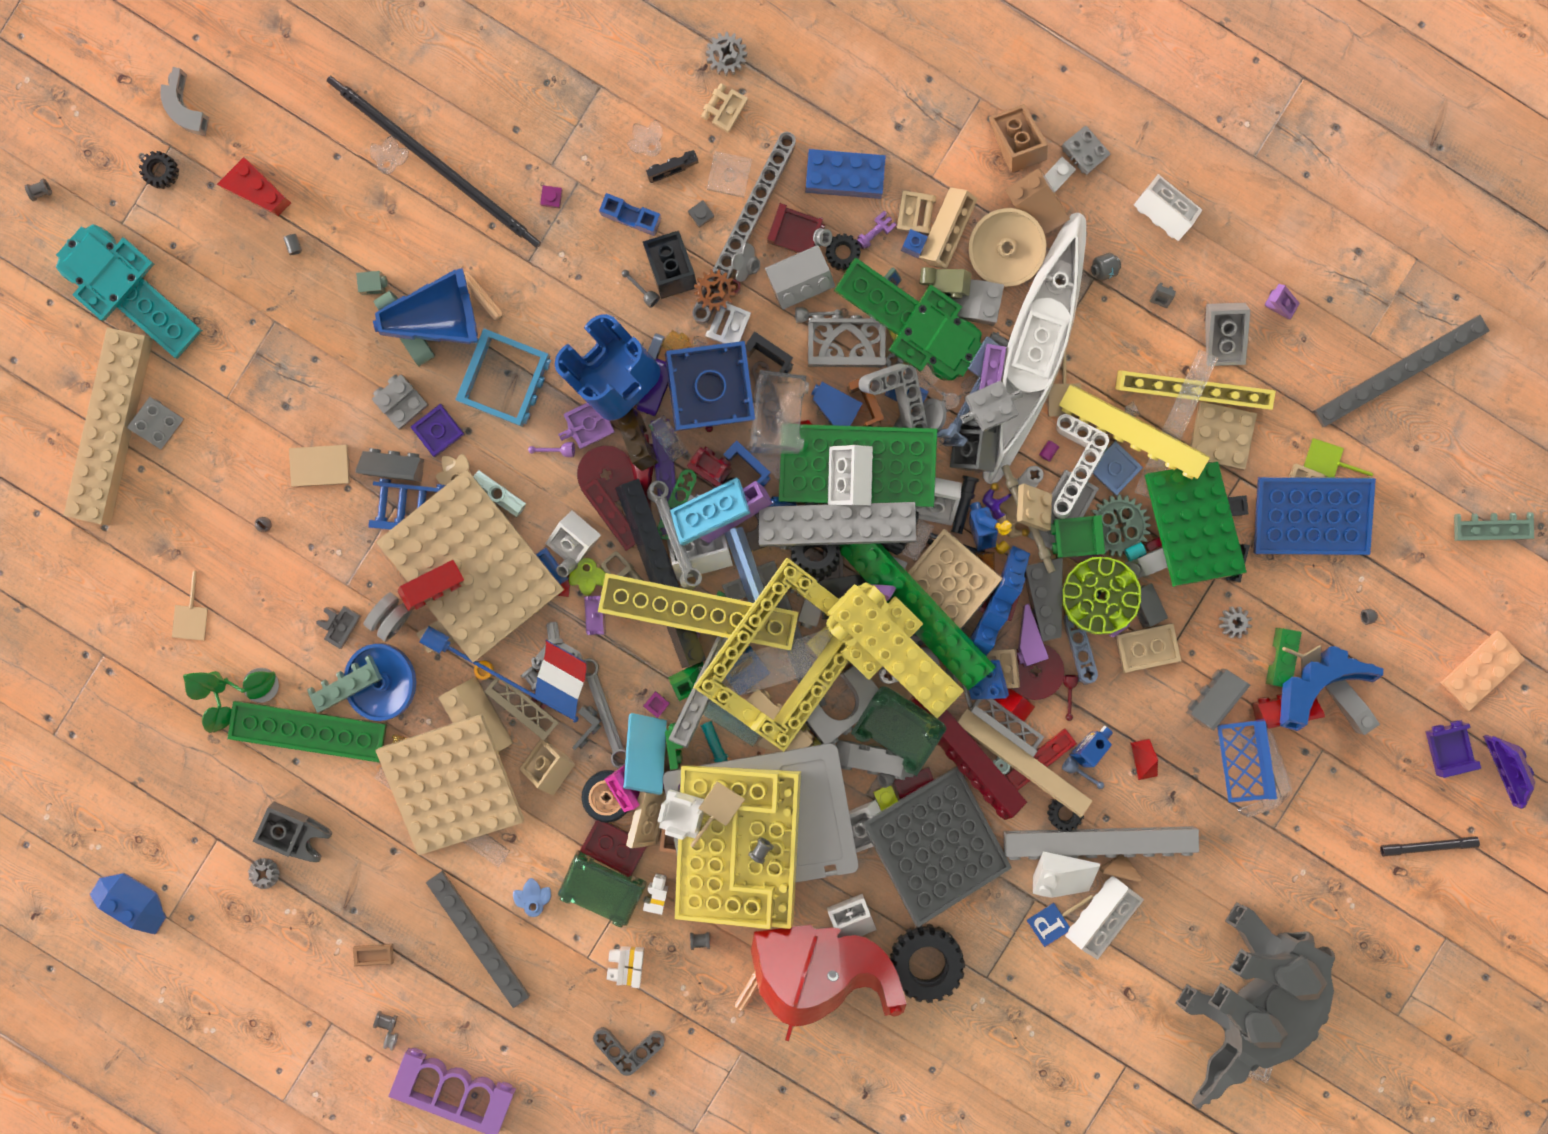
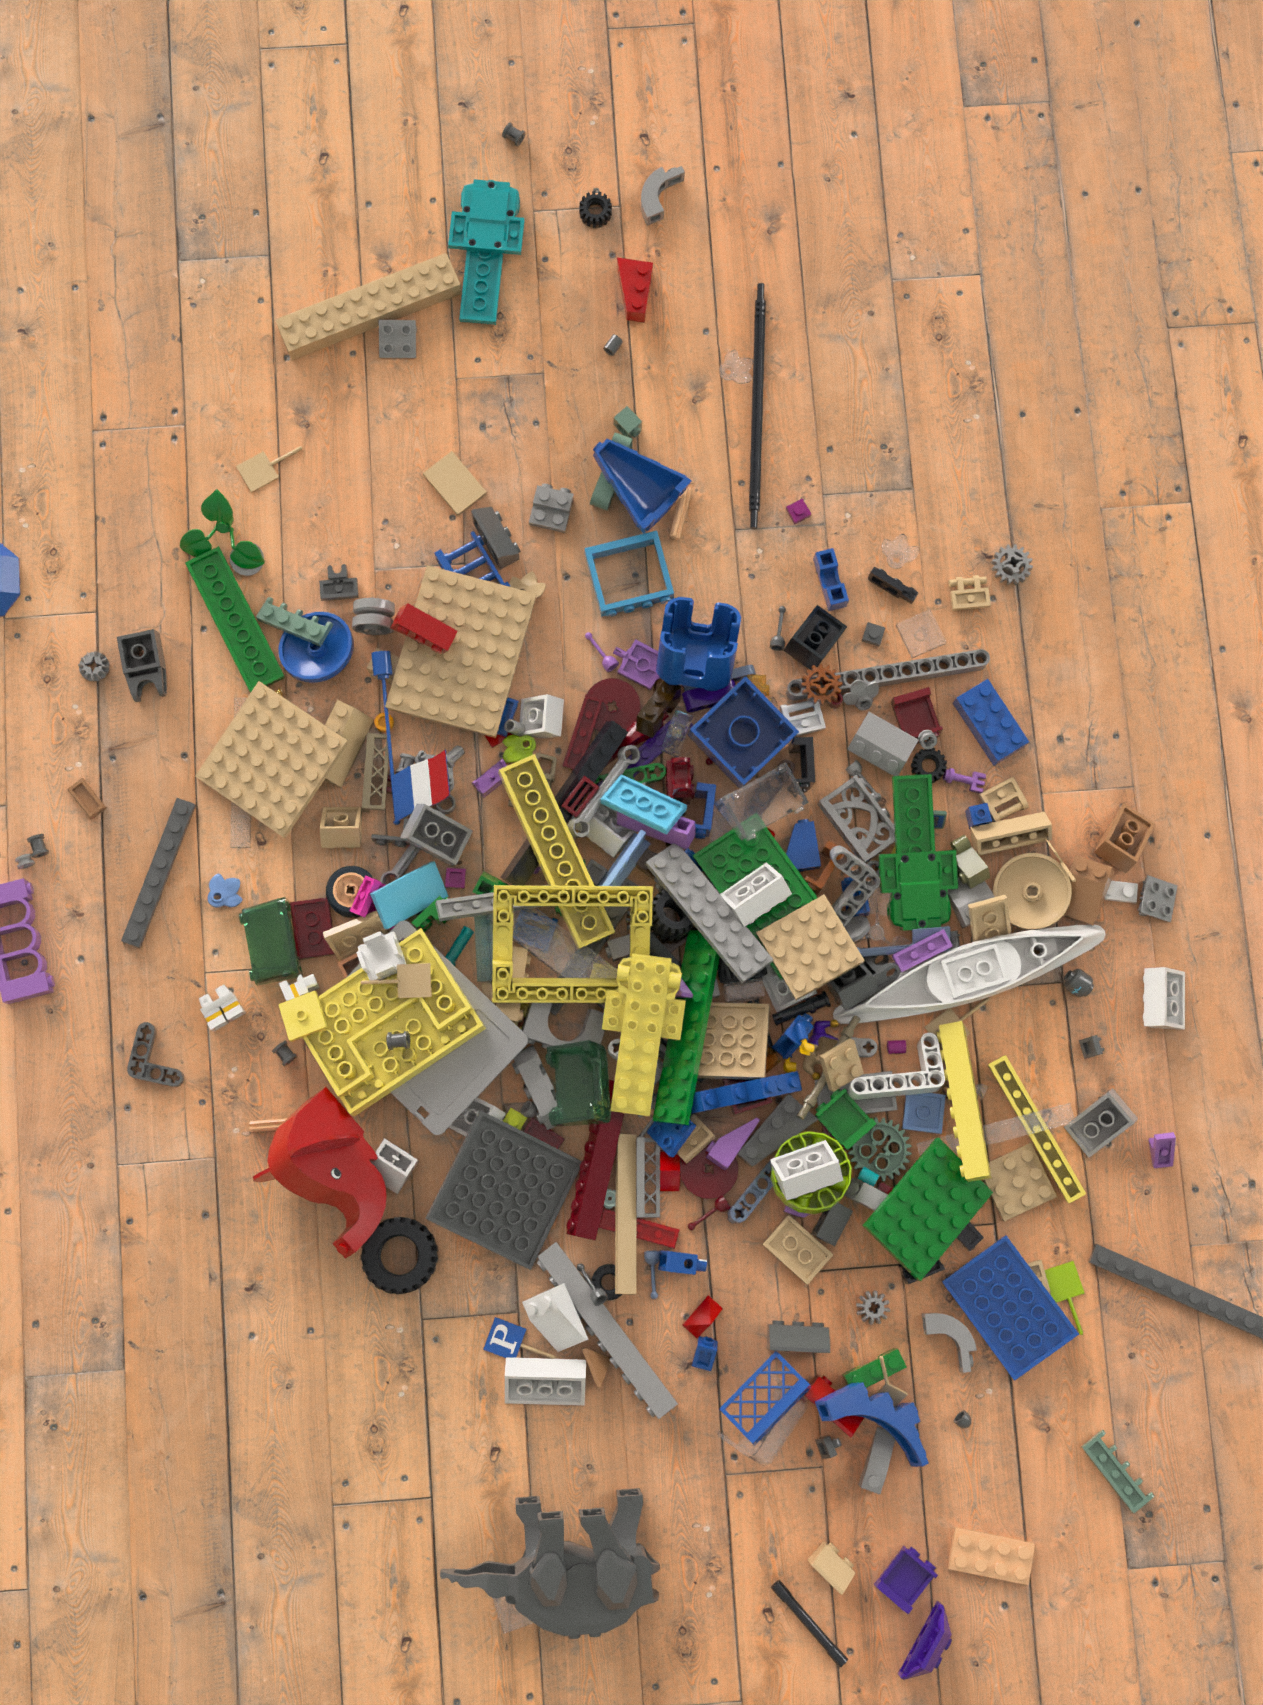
camera: 50 degrees right, 10 degrees down
(265, 521) = (380, 473): dark grey hinge -> none
(437, 430) = (549, 553): dark purple tile -> none
(507, 501) = (534, 645): light aqua piece -> none
(610, 696) = (436, 834): none -> light grey brick
(670, 548) = (570, 809): none -> dark red tile
(683, 909) = (303, 1016): none -> light yellow plate
(926, 464) = (810, 947): none -> tan plate
(991, 406) = (896, 967): light grey plate -> none
(1005, 299) = (989, 918): none -> tan tile
(1006, 206) = (1062, 863): none -> tan piece
(1072, 831) = (597, 1295): none -> dark grey hinge
(1100, 599) = (806, 1170): none -> white slope
(1173, 778) = (705, 1353): none -> blue bracket
(1288, 576) = (940, 1323): none -> light grey arch
(1312, 735) = (827, 1446): none -> dark grey tile
(1404, 800) = (832, 1567): none -> tan slope

